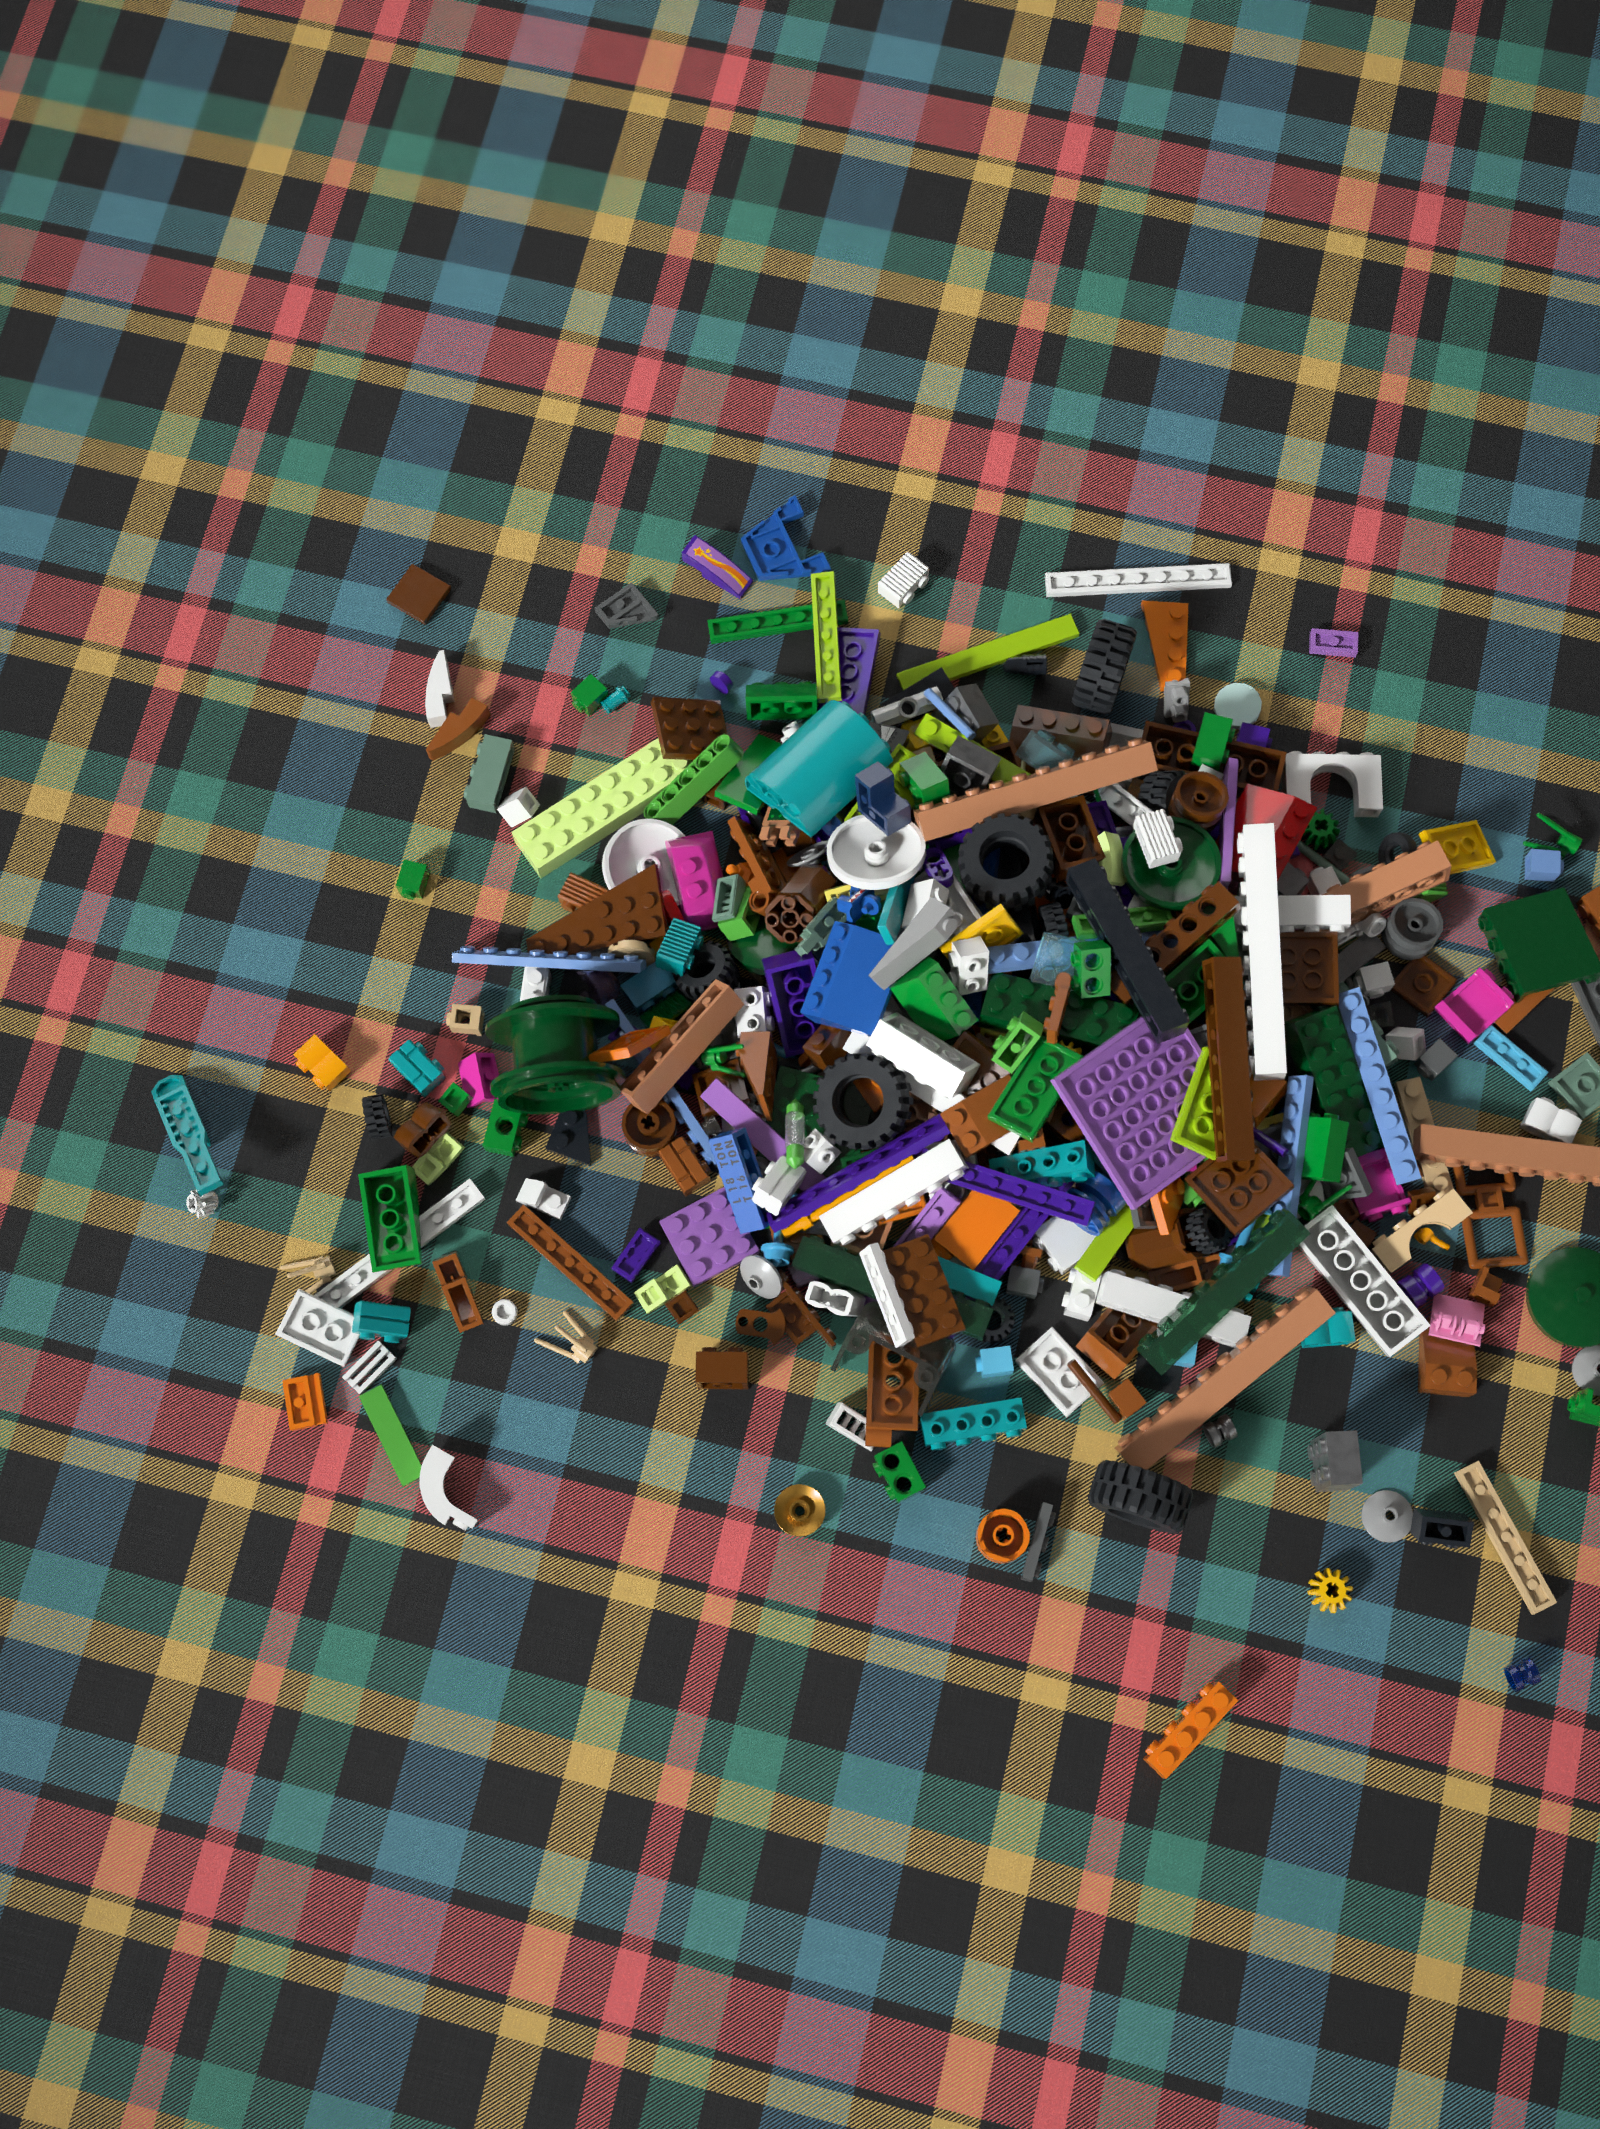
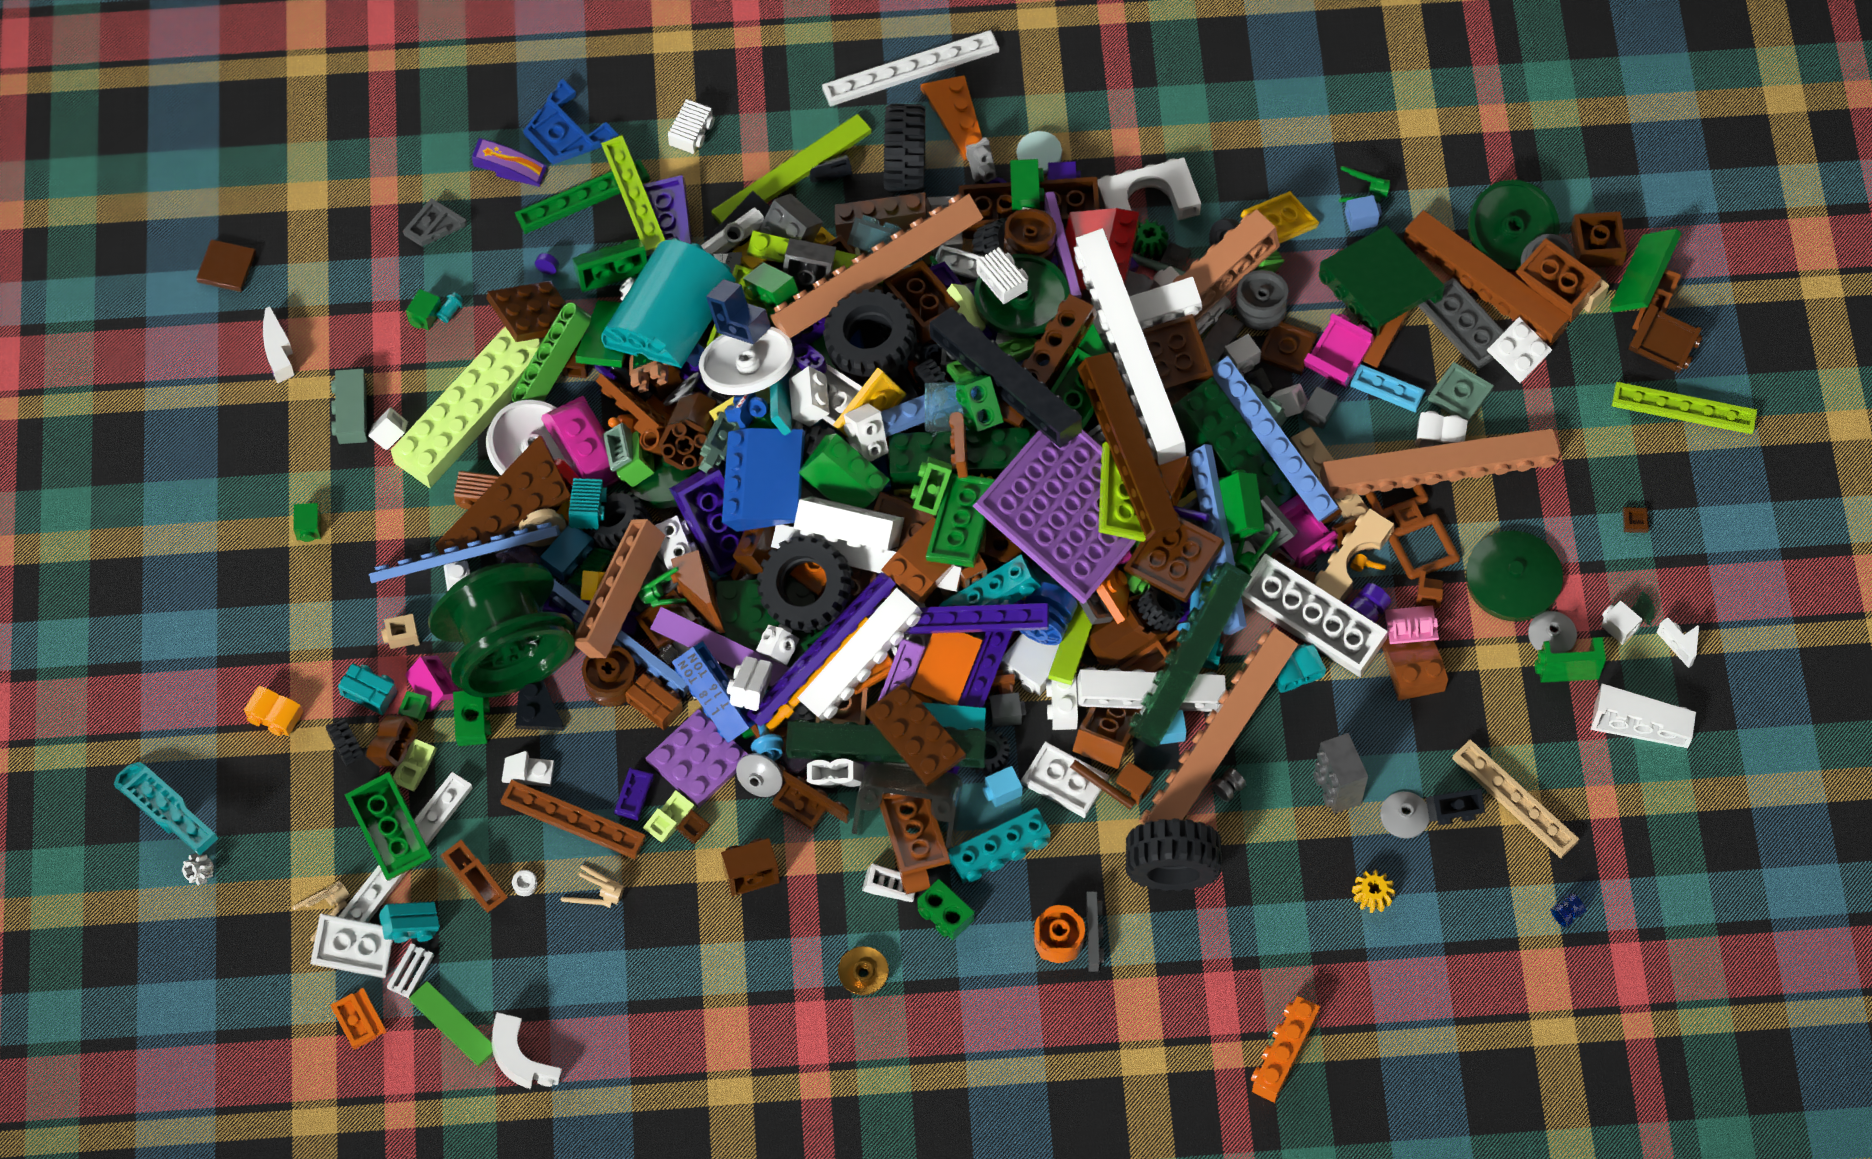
camera: 20 degrees left, 10 degrees down
(458, 729) = (306, 375): dark orange slope -> none
(630, 1044) = (573, 593): orange tile -> none
(774, 1330) = (787, 820): reddish brown piece -> none
(795, 1134) = (751, 634): piece -> none
(887, 1295) = (883, 746): white plate -> none
(921, 938) = (813, 421): light grey wedge -> none
(949, 714) = (773, 225): medium blue bar -> none
(1333, 642) = (1109, 73): medium lavender plate -> none
(1374, 925) = (1225, 306): white tile -> none

